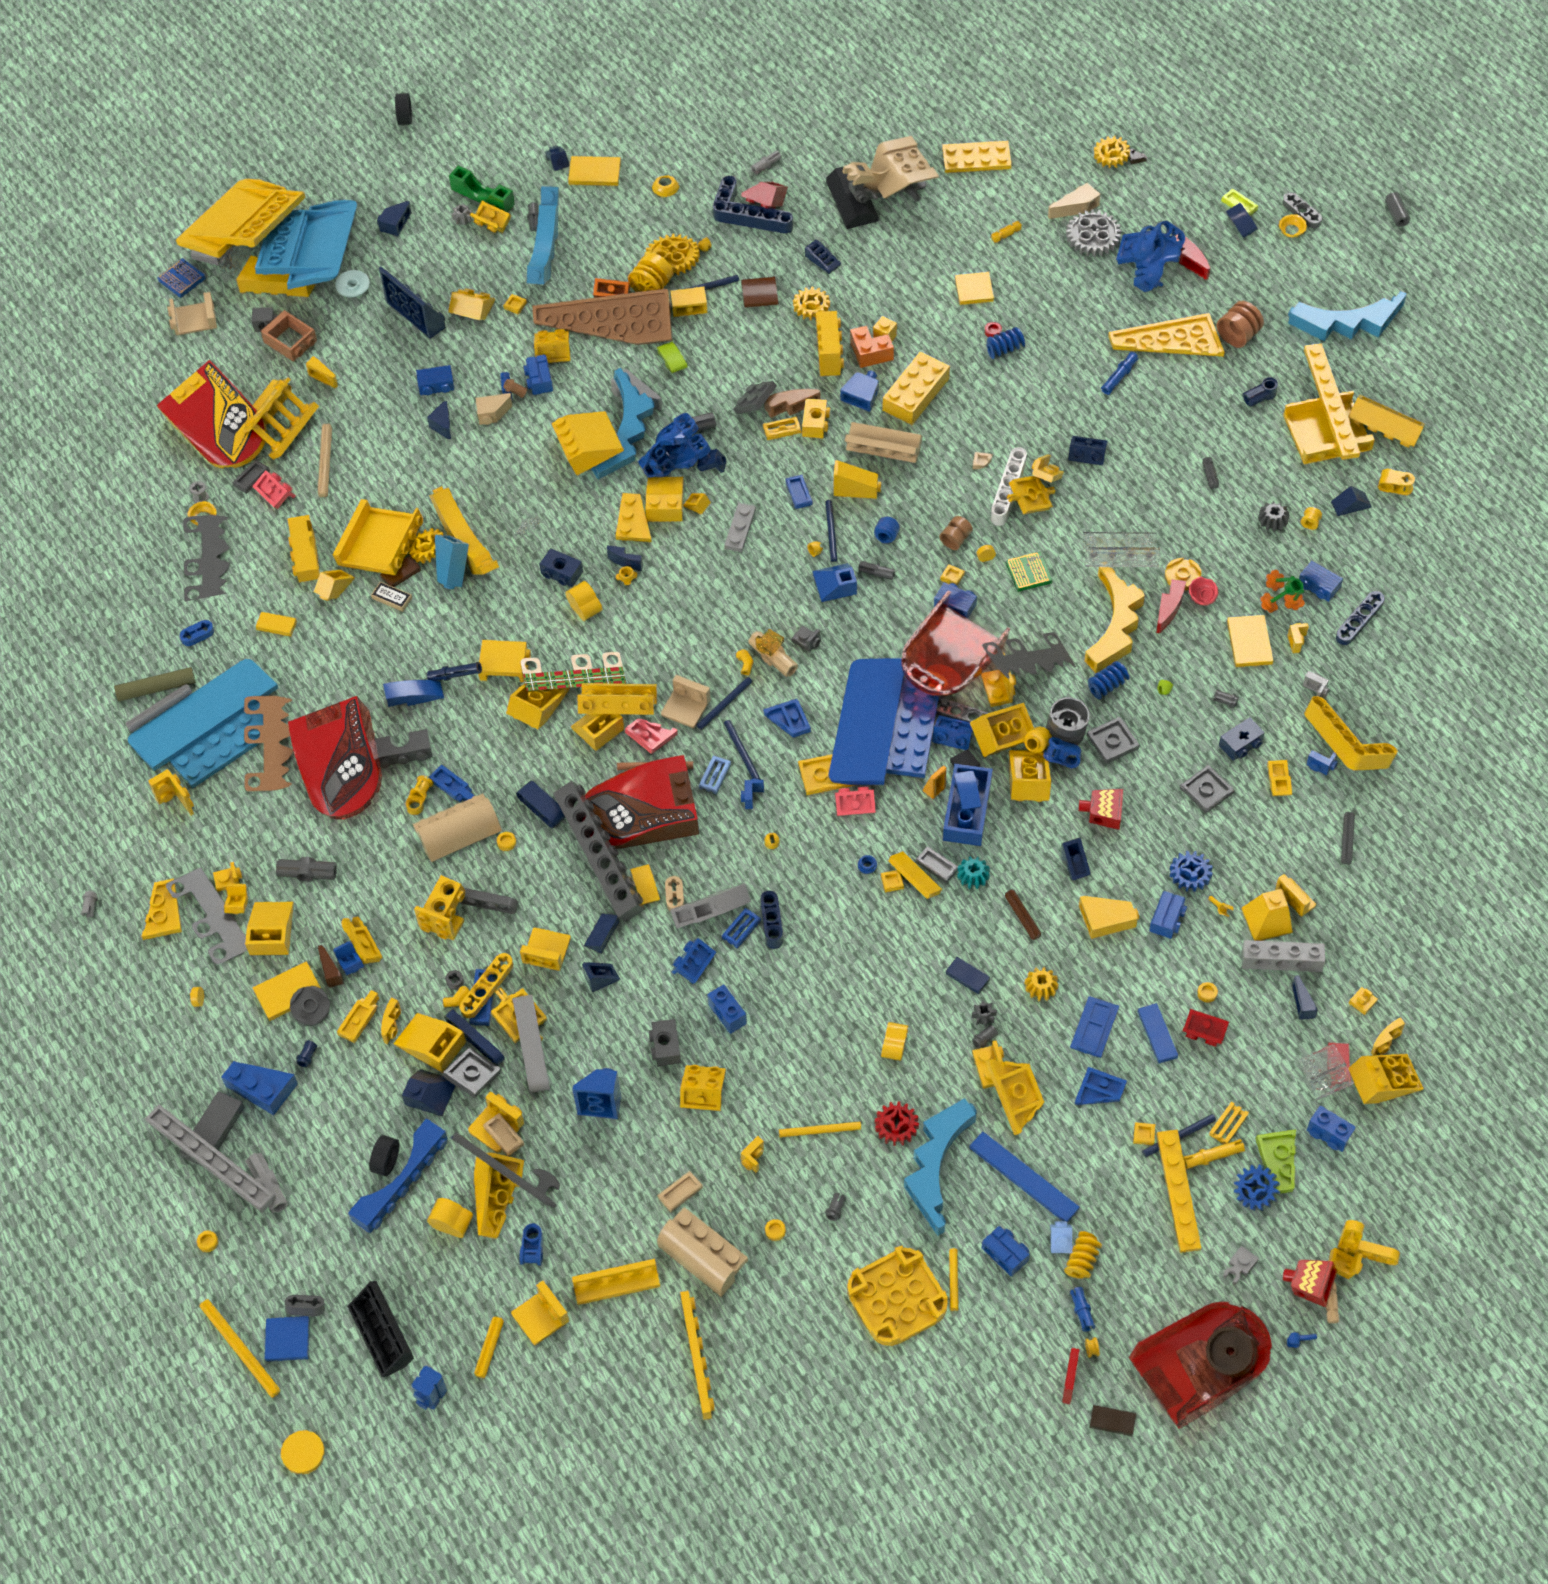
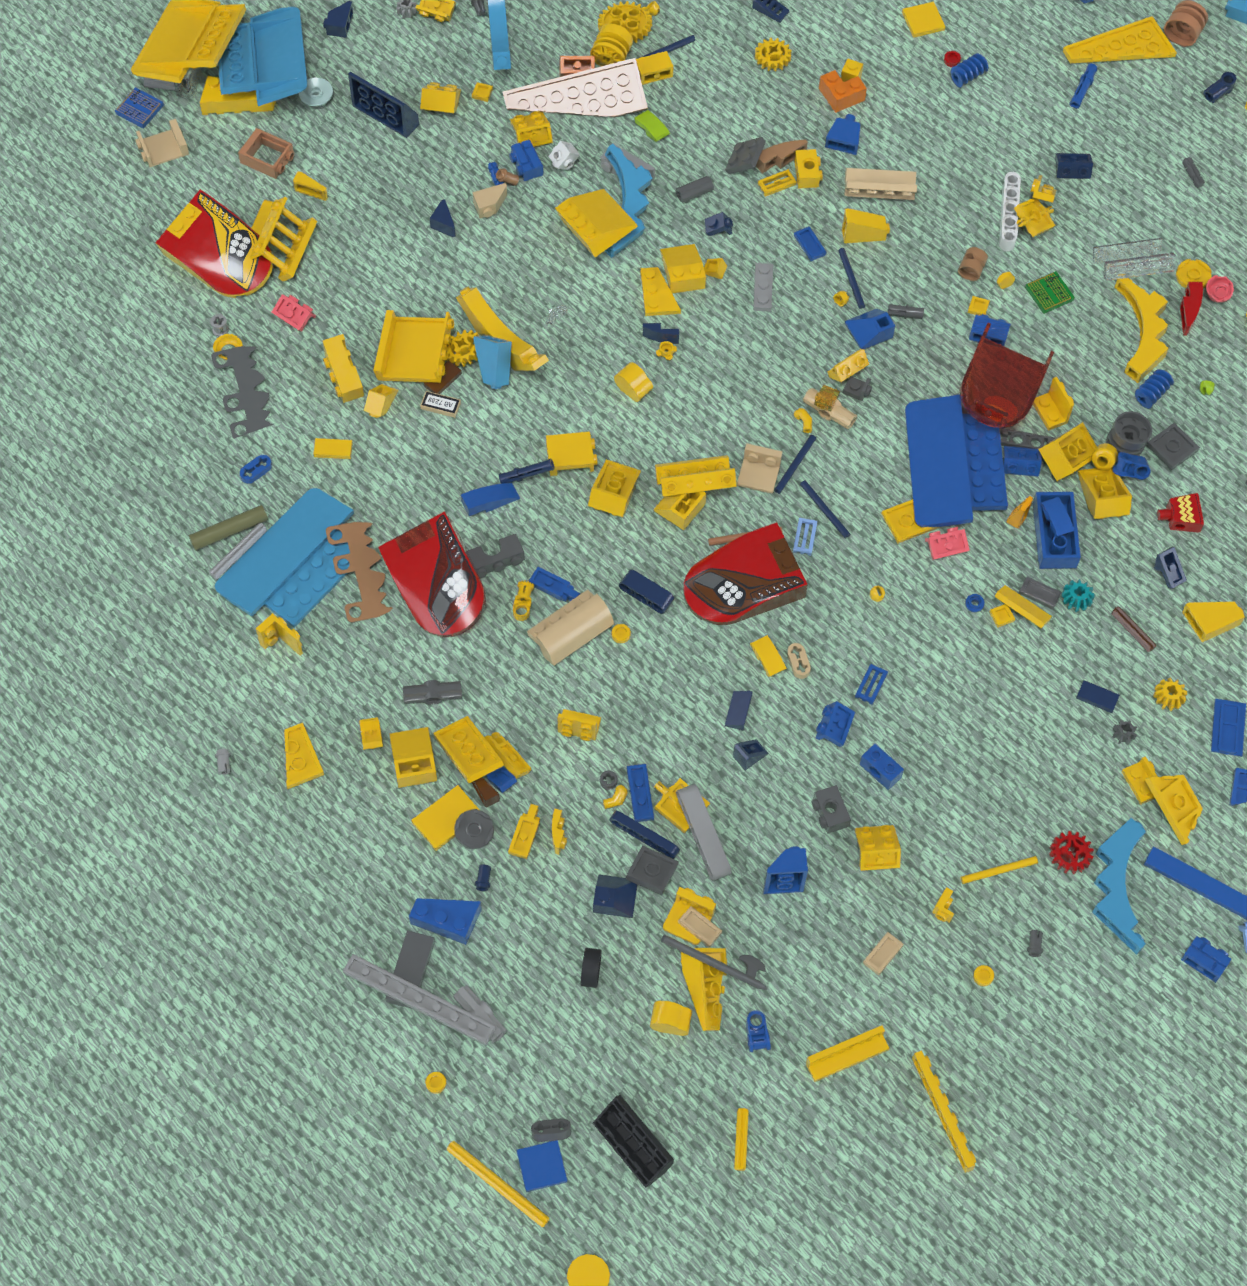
camera: 15 degrees left, 5 degrees up
(197, 996) = (358, 837): yellow tile -> none
(216, 918) = (379, 775): piece -> none
(227, 876) = (355, 713): yellow bracket -> none
(249, 476) = (266, 302): dark grey tile -> none
(262, 317) = (235, 139): dark grey brick -> none
(323, 928) = (468, 749): none -> yellow plate
(324, 464) = (336, 275): tan axle -> none
(371, 1209) = (591, 1021): blue arch -> none
(428, 1388) = (698, 1191): blue brick -> none
(431, 1041) = (603, 845): yellow slope -> none
(435, 380) = (425, 179): blue brick -> none
(439, 898) = (577, 701): yellow brick -> none
(488, 901) = (613, 695): dark grey beam -> none
(489, 987) = (644, 781): yellow beam -> none
(540, 1314) = (784, 1098): yellow bracket -> none
(545, 949) = (690, 735): yellow bracket -> none
(566, 798) = (672, 582): dark grey brick -> none
(569, 567) = (594, 345): dark blue brick -> none
(573, 678) = (646, 460): piece -> none
(575, 374) = (564, 155): none -> white brick
(649, 734) = (732, 506): coral wing -> none
(674, 448) = (682, 216): blue animal -> none
(701, 1251) = (922, 1009): tan brick -> none
(710, 906) = (838, 668): light grey slope -> none
(751, 786) = (844, 545): blue bracket -> none
(759, 292) = (719, 49): reddish brown slope -> none
(771, 911) = (899, 663): dark blue beam -> none
(789, 718) = (862, 469): blue wing -> none
(802, 614) = (849, 366): none -> yellow bracket
(829, 343) = (801, 92): yellow wedge -> none
(886, 529) = (905, 270): blue head -> none
(894, 1041) = (1048, 772): yellow axle -> none
(897, 1296) = (1116, 1020): yellow tile -> none
(916, 388) = (896, 126): yellow brick -> none
(953, 1274) = (1163, 994): yellow bar -> none
(965, 758) = (1039, 485): black piece -> none
(980, 1040) = (1130, 754): dark grey pin -> none
(981, 459) = (975, 188): tan tile -> none
(1027, 660) = (1077, 379): dark grey piece -> none

